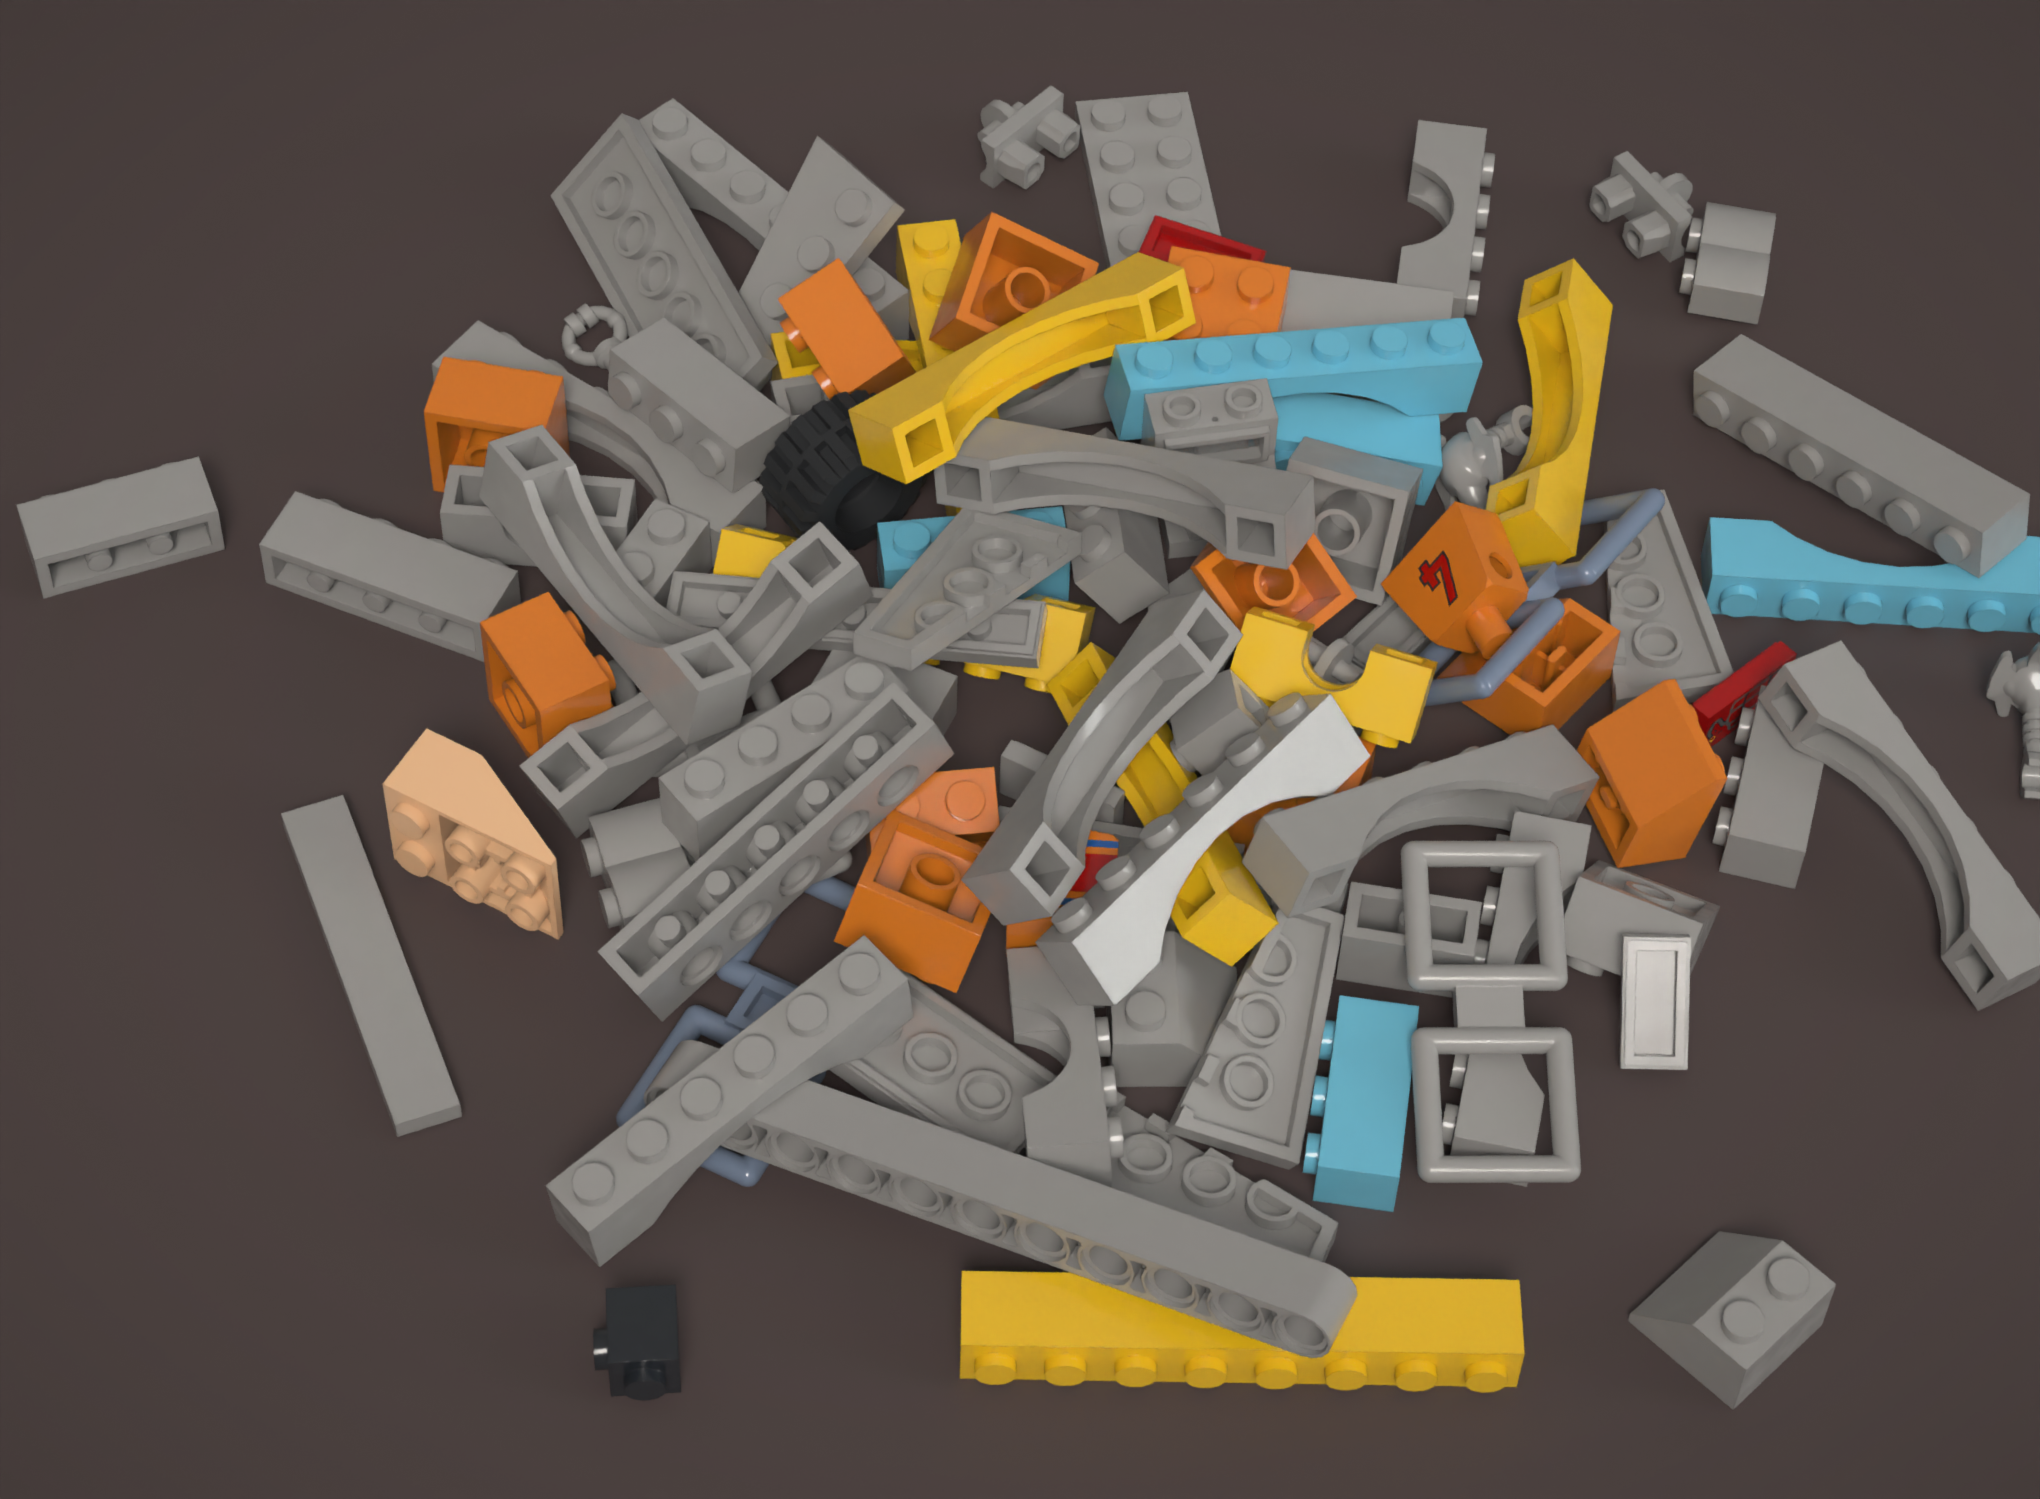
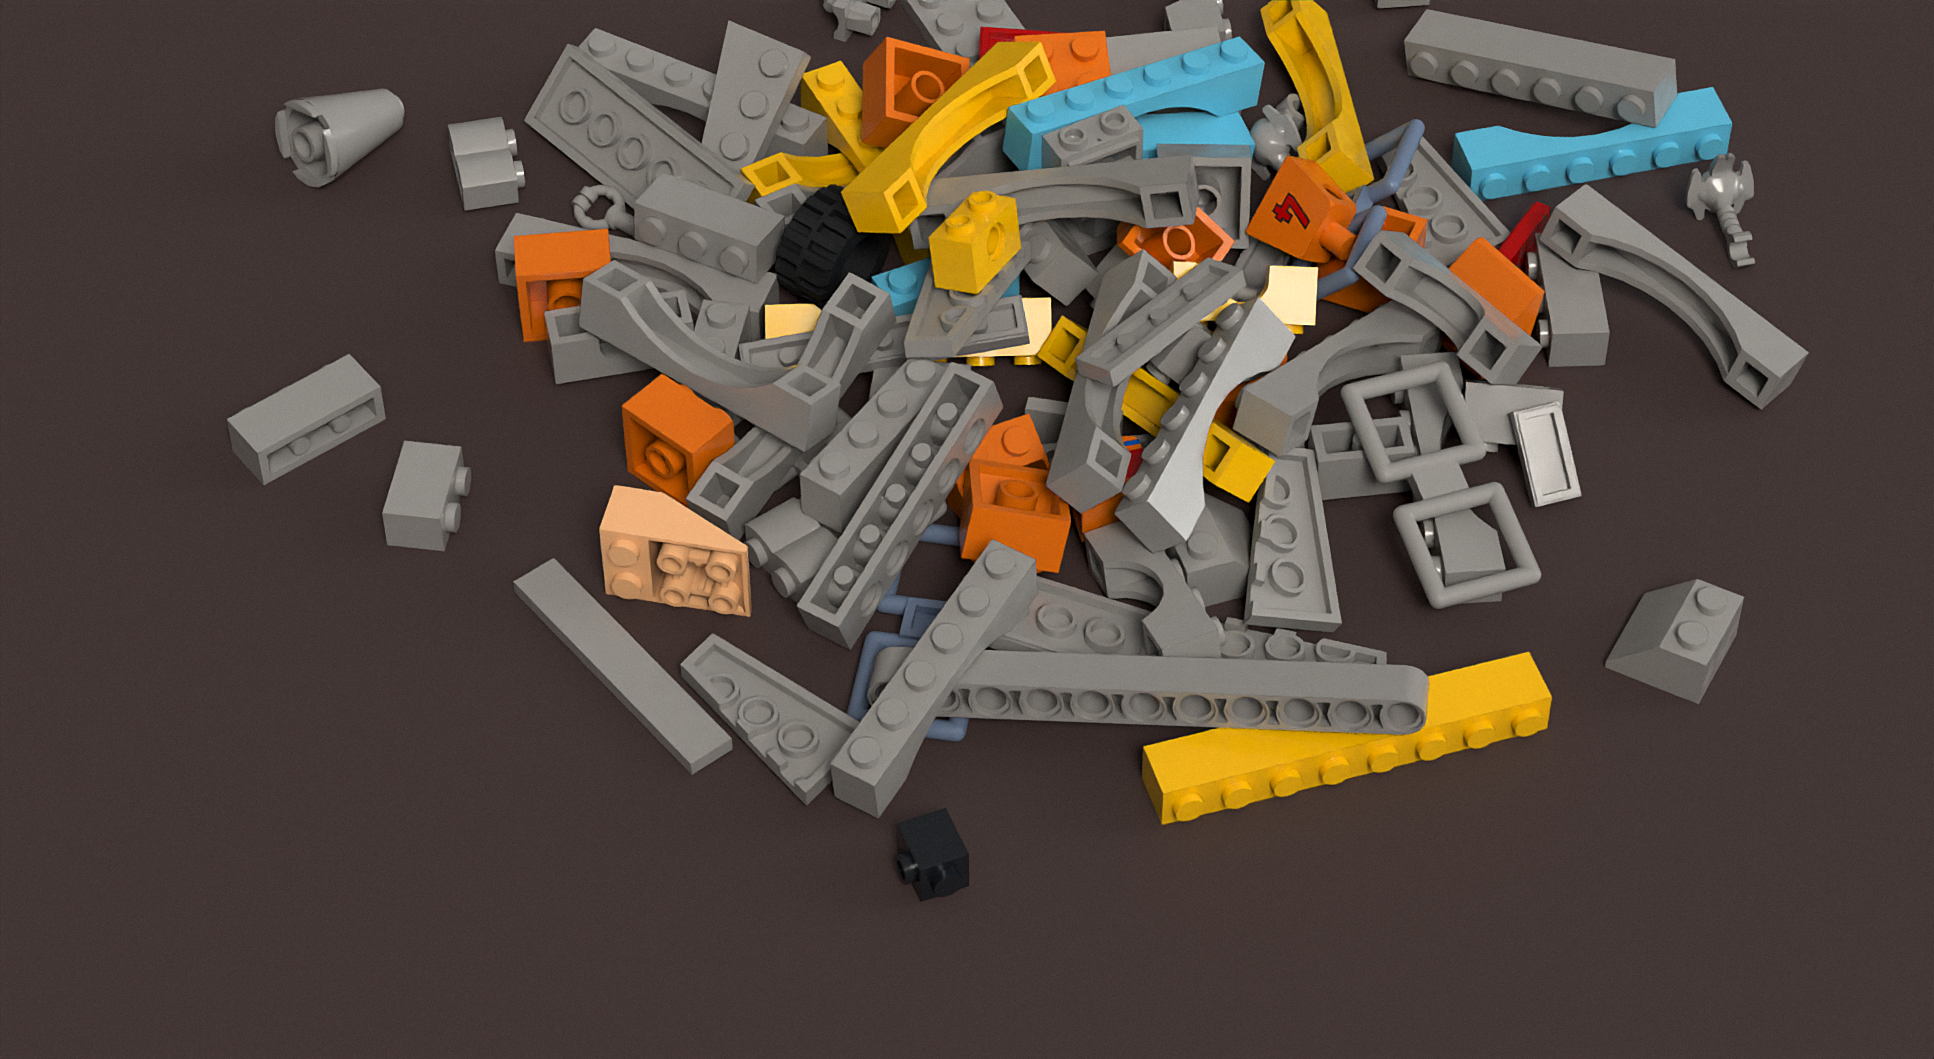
camera: 15 degrees left, 5 degrees down
(220, 669) = (425, 496): none -> light grey brick
(314, 154) = (335, 131): none -> light grey cone
(386, 574) = (523, 403): light grey brick -> none
(475, 241) = (484, 163): none -> light grey brick
(522, 1081) = (771, 714): none -> light grey wing
(843, 333) = (803, 150): orange slope -> none
(999, 520) = (975, 242): none -> yellow brick
(1189, 695) = (1160, 322): none -> light grey plate
(1362, 1104) = (1372, 573): medium azure brick -> none
(1558, 710) = (1478, 329): none -> light grey arch

